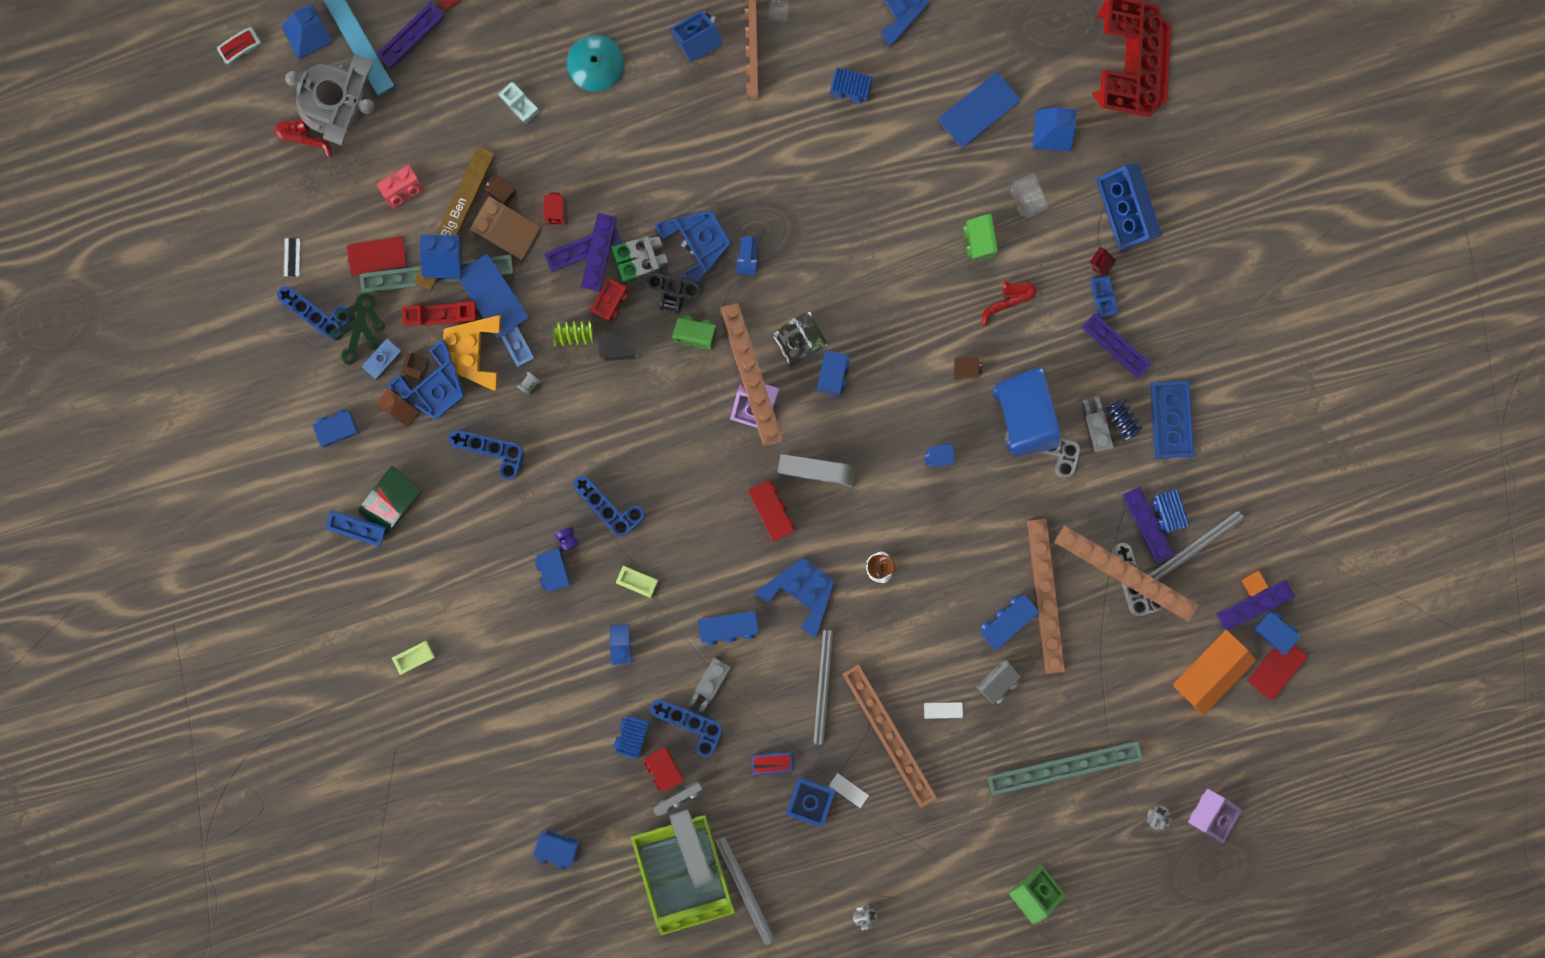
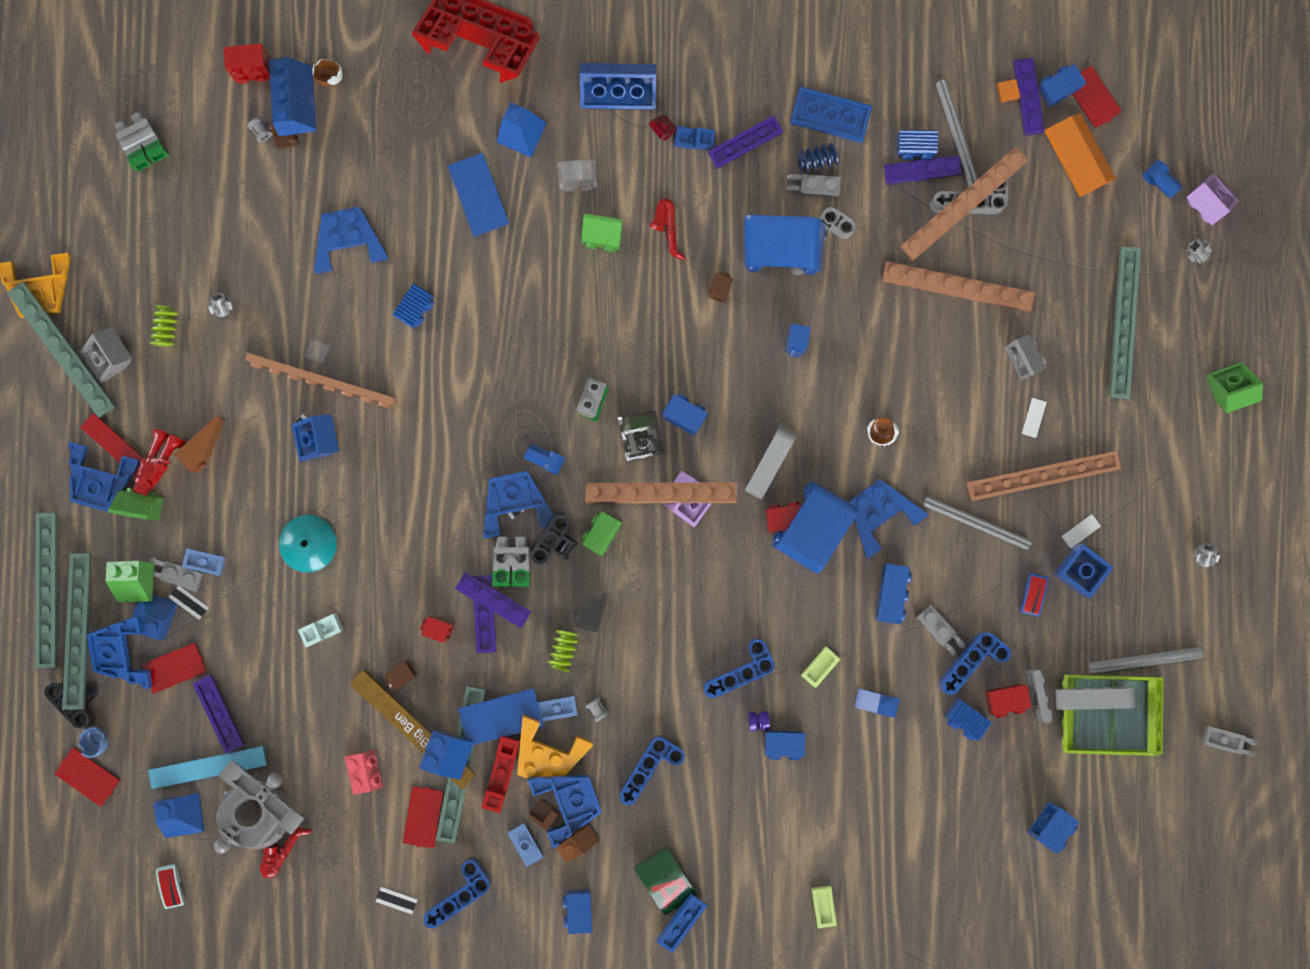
camera: 80 degrees left, 0 degrees up
(357, 326) = (486, 857): dark green plant -> none
(505, 228) = (439, 683): medium nougat slope -> none
(609, 299) = (542, 605): red bracket -> none
(766, 531) = (816, 528): none -> blue windscreen
(820, 279) = (592, 396): none -> light grey hips
(1008, 621) = (972, 328): blue brick -> none
(1219, 756) = (1159, 176): none -> blue piece

